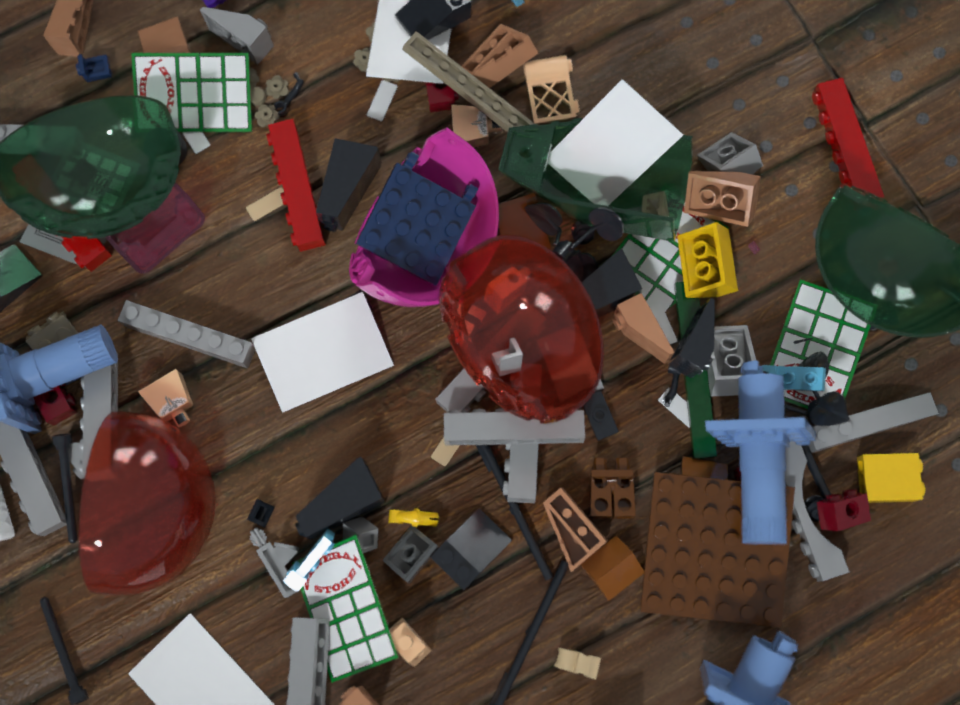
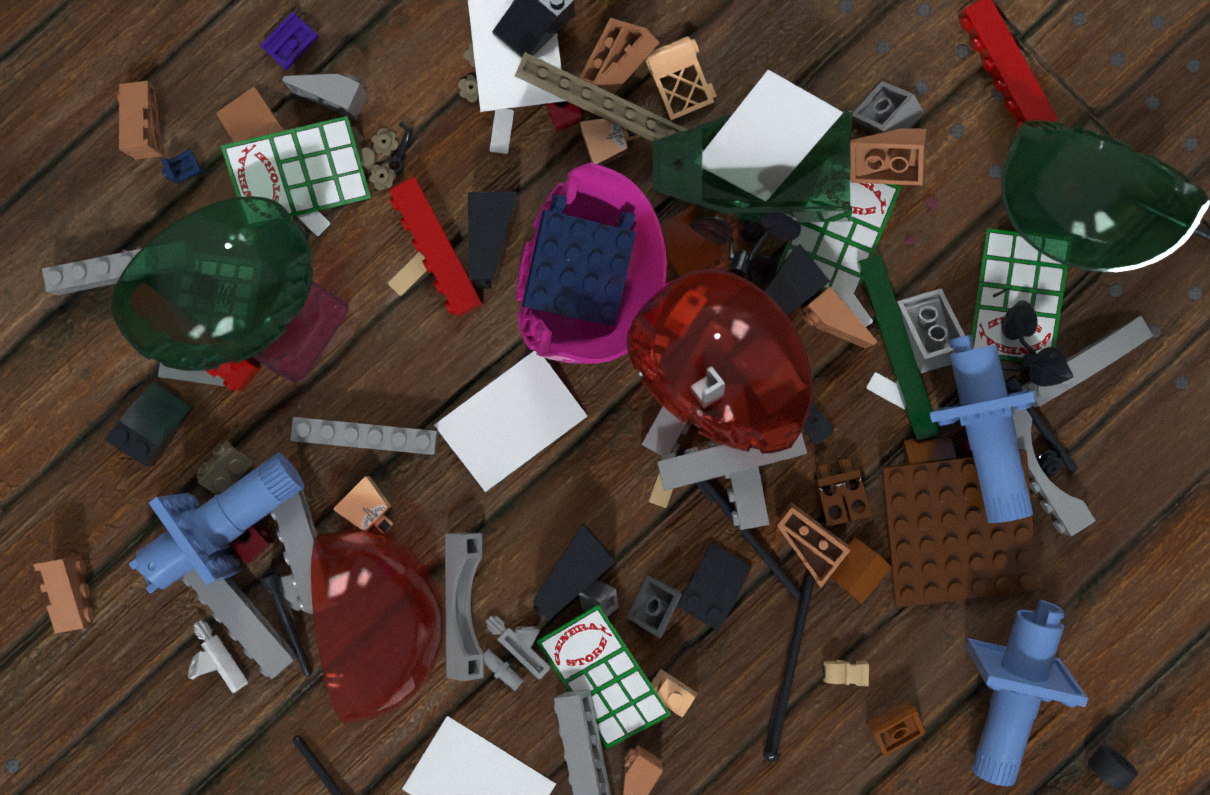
camera: 20 degrees left, 10 degrees up
(221, 547) = (463, 652): none -> light grey arch
(251, 580) = (502, 670): none -> light grey pin
(260, 513) = (491, 600): black slope -> none
(299, 572) = (549, 651): plate -> none
(413, 517) = (648, 569): yellow piece -> none
(655, 204) = (822, 188): dark tan slope -> none
(673, 390) = (878, 352): black piece -> none
(697, 343) = (897, 322): black slope -> none
(707, 262) = (888, 232): yellow slope -> none
(799, 377) = (1005, 336): medium azure plate -> none
(843, 510) = (1078, 461): dark red brick -> none
(891, 477) = (1117, 414): yellow brick -> none

